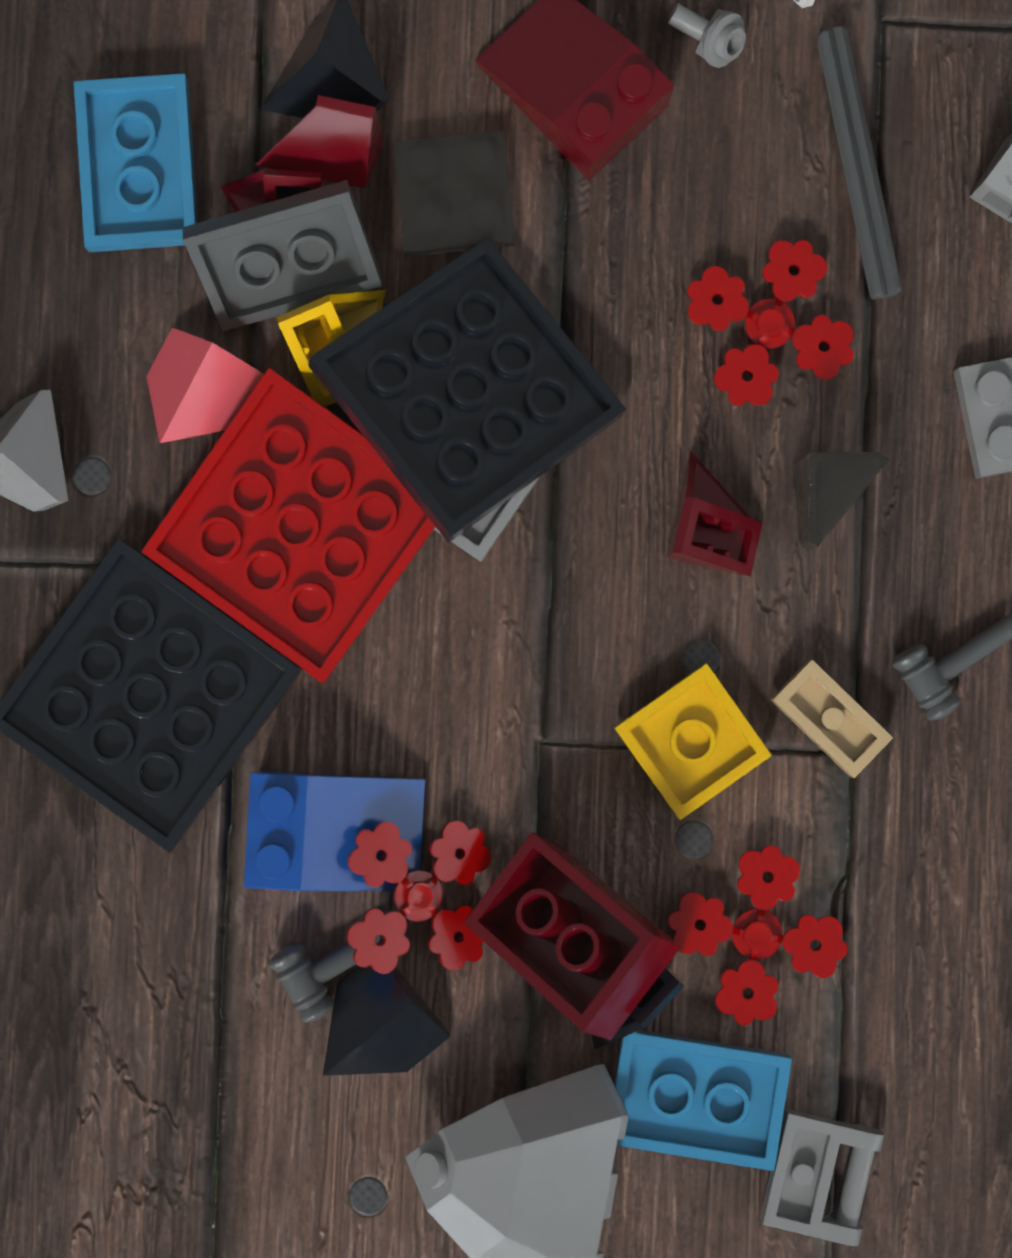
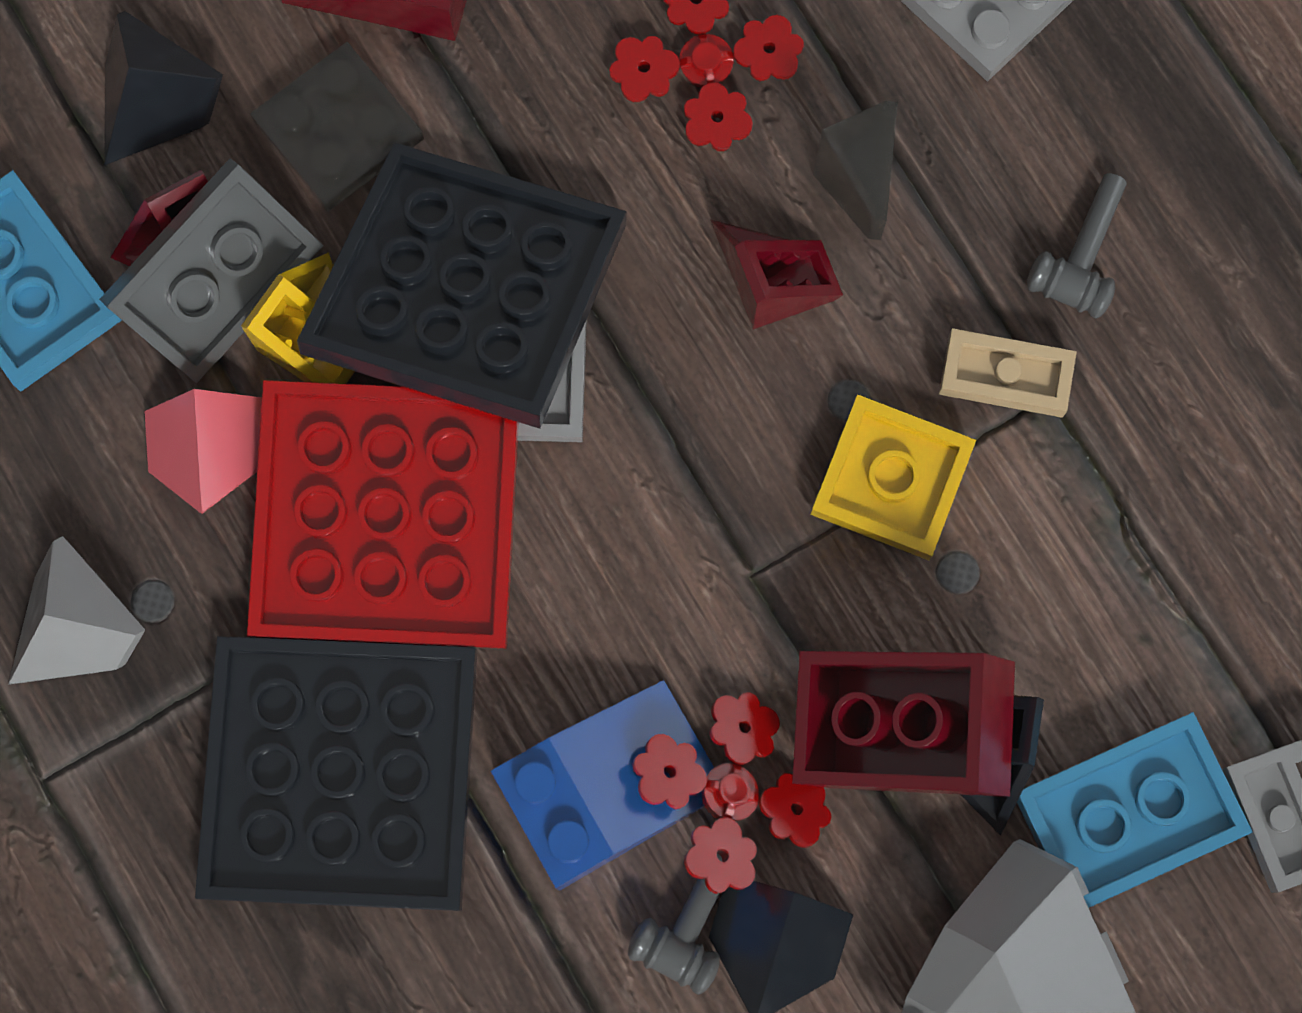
camera: 30 degrees left, 10 degrees down
(331, 139) = (191, 134): dark red slope -> none
(757, 935) = (1081, 618): red plant -> none

